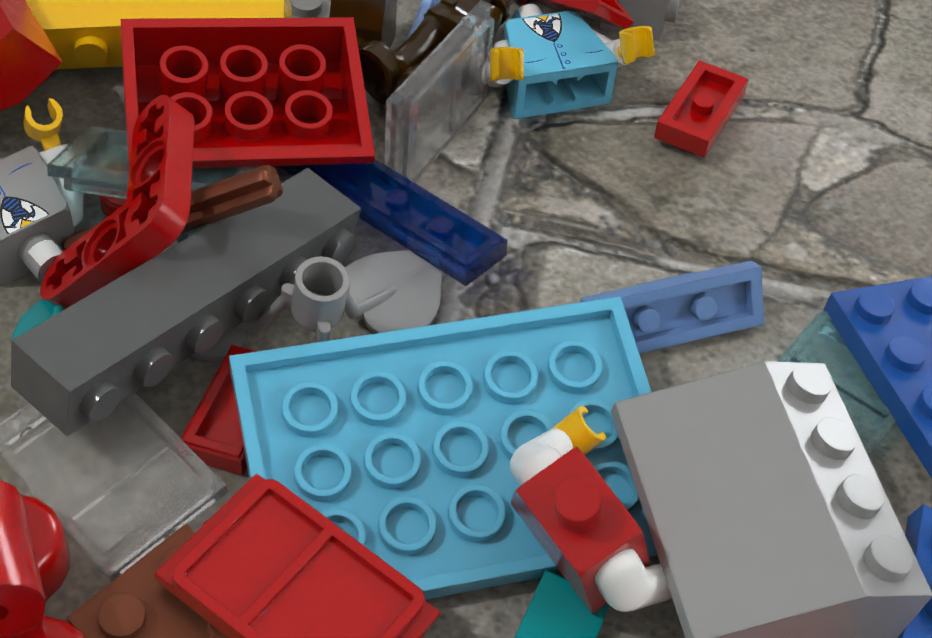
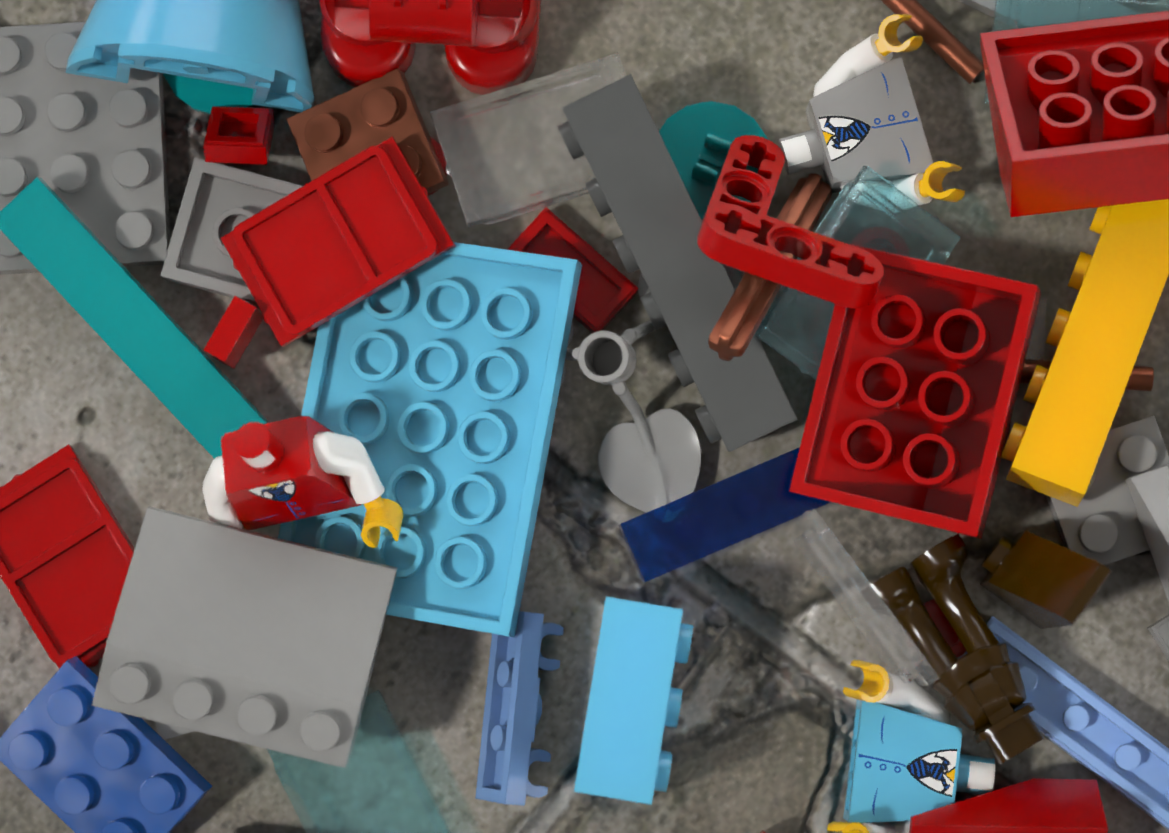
camera: 125 degrees right, 35 degrees up
(616, 212) = (632, 701): none -> medium azure brick

